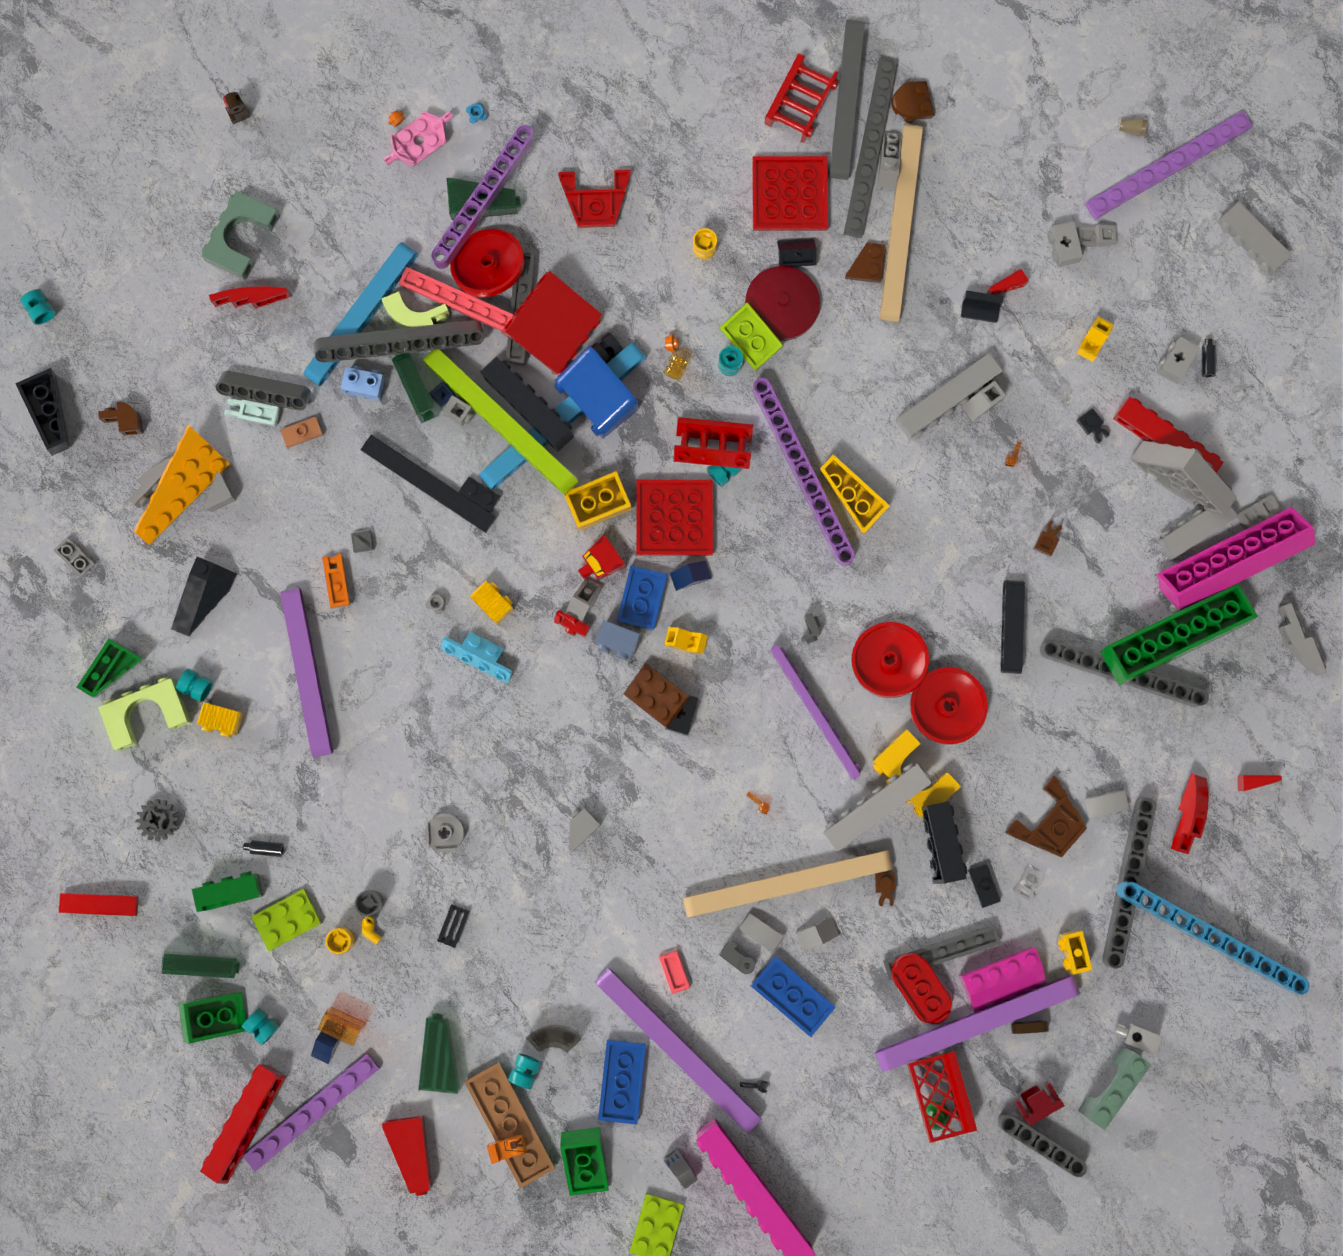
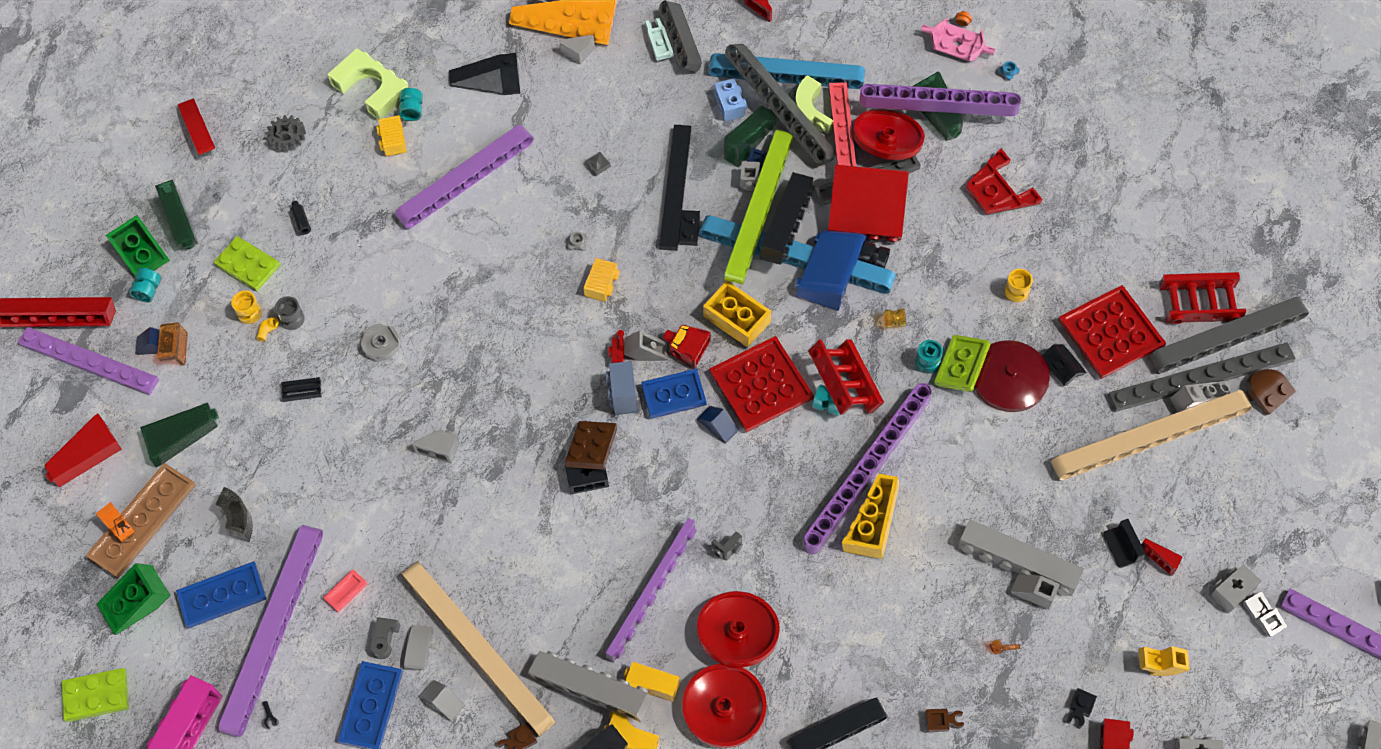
camera: 65 degrees right, 20 degrees down
(108, 667) = (392, 41): green wedge -> none
(227, 891) = (247, 205): green wedge -> none
(301, 432) = (663, 79): nougat plate -> none
(336, 581) = (553, 160): orange plate -> none
(480, 654) = (551, 292): medium azure bracket -> none
(521, 1077) = (189, 509): teal wheel -> none
(671, 343) = (914, 304): orange plate -> none
(680, 1168) = (160, 686): dark grey leg -> none
(686, 641) = (654, 445): yellow brick -> none
(763, 807) = (538, 590): clear orange hand -> none
(868, 264) = (1094, 427): reddish brown wing -> none

